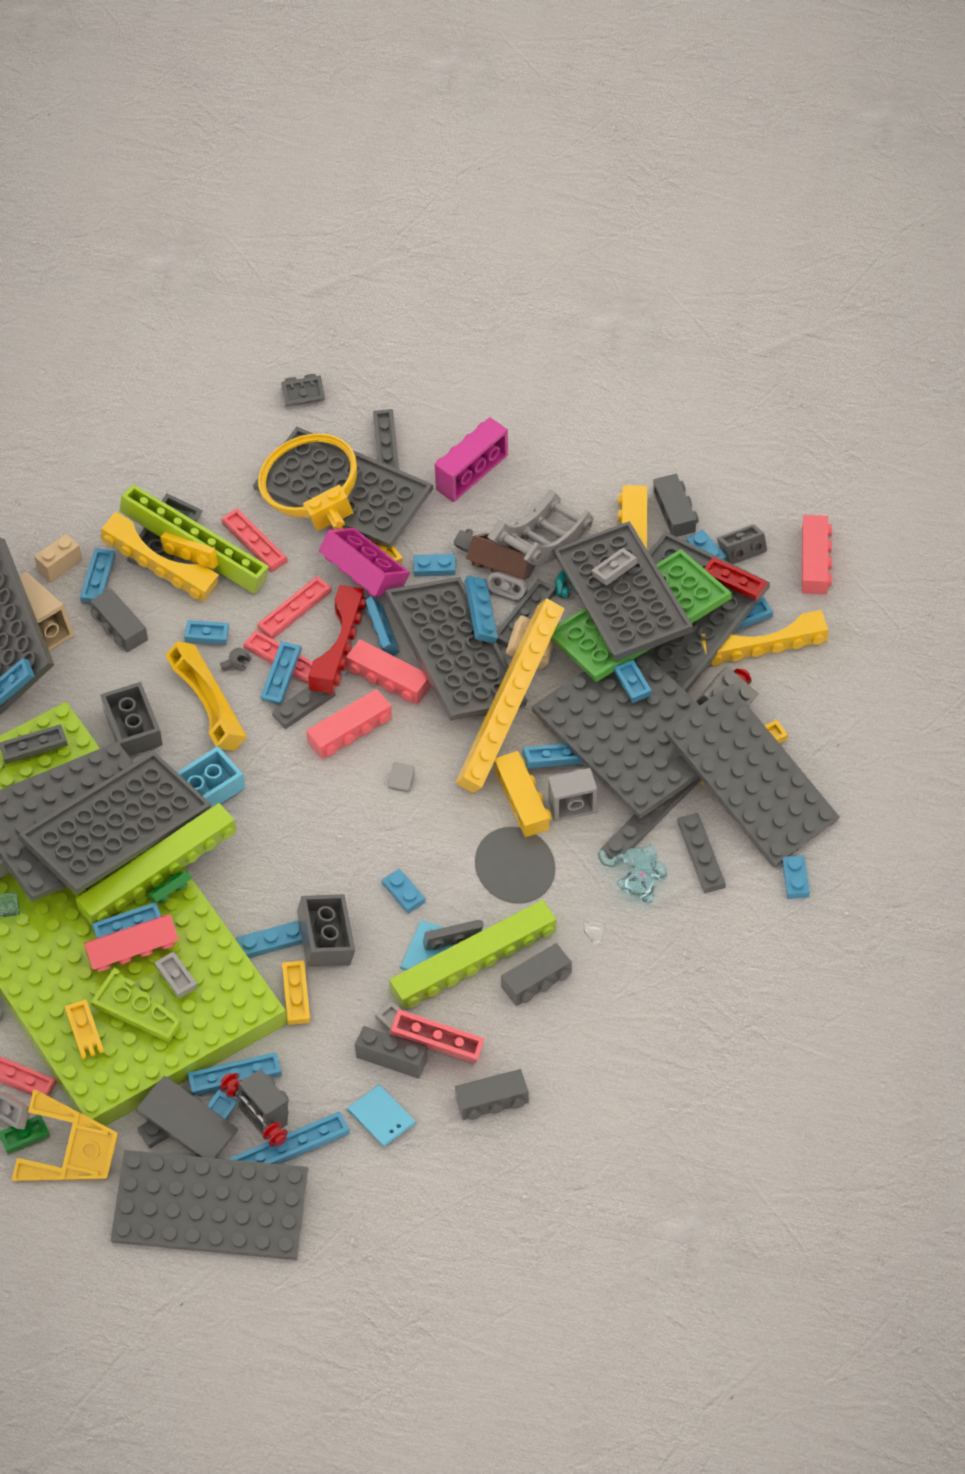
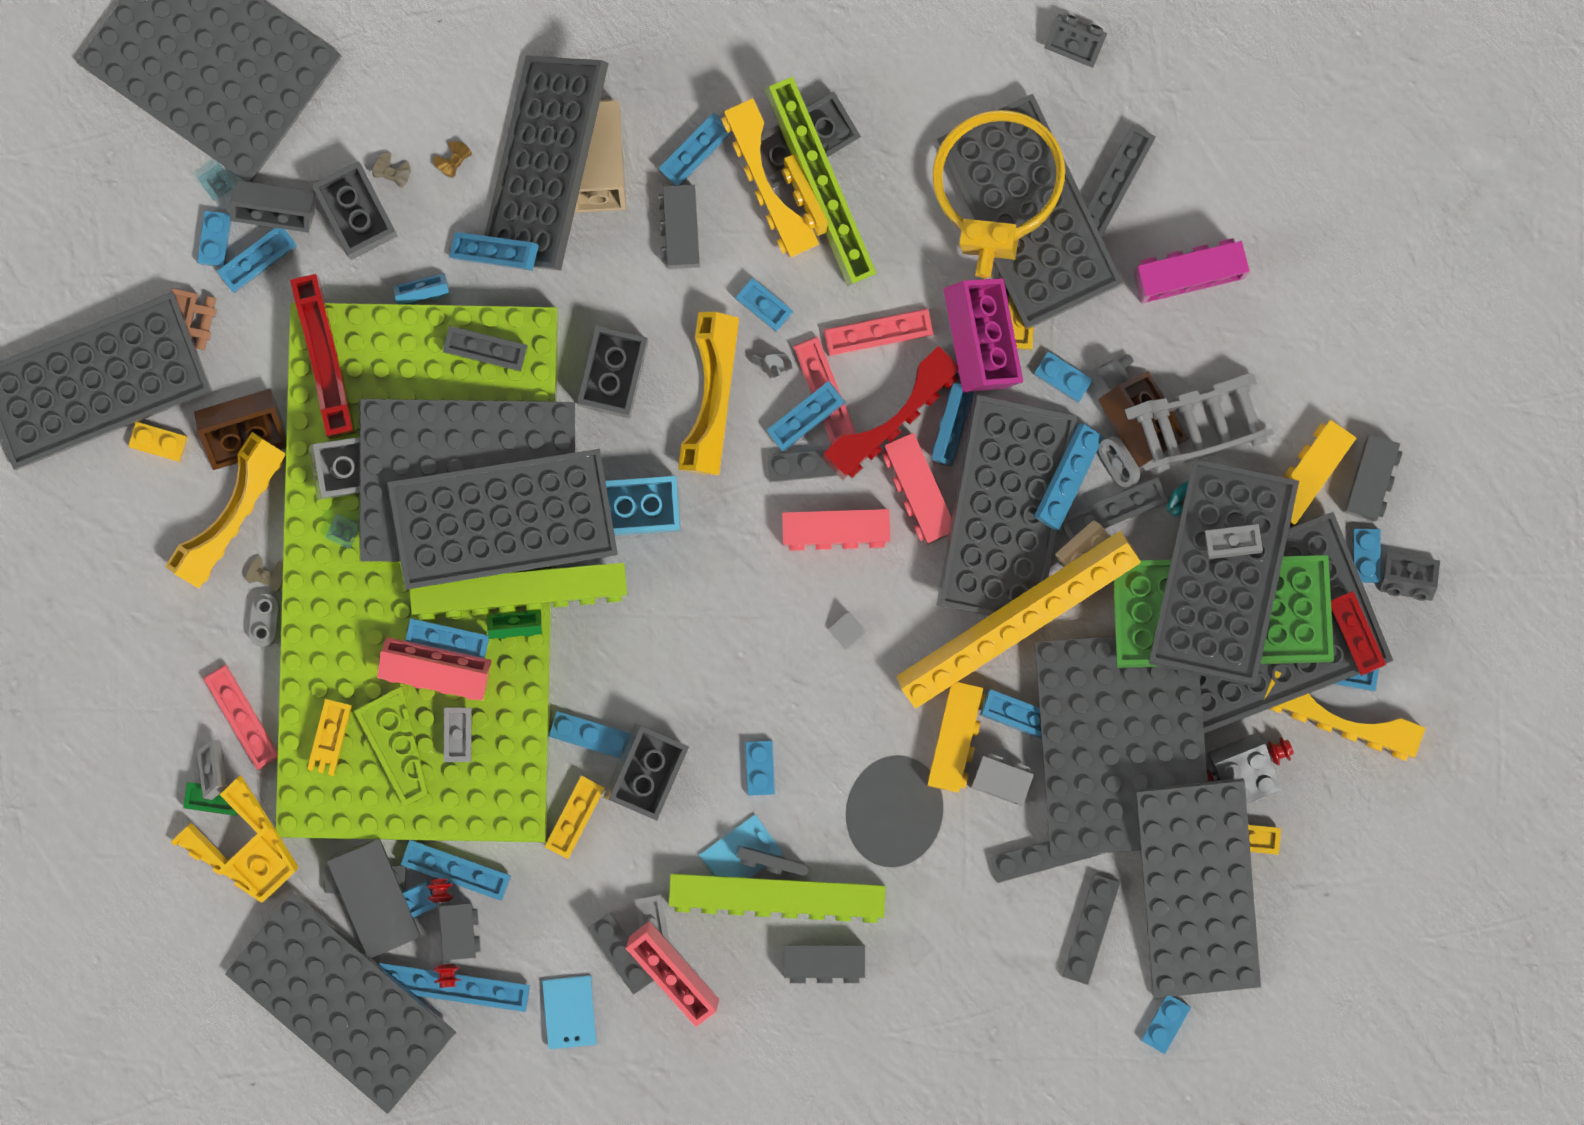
camera: 35 degrees right, 30 degrees up
(58, 558) = (666, 99): tan brick -> none
(254, 539) = (893, 211): coral tile -> none
(492, 1094) = (688, 1068): dark grey brick -> none
(632, 681) = (1154, 694): dark azure plate -> none
(640, 881) = (1000, 925): clear light blue animal -> none
(815, 554) = (1476, 646): coral brick -> none

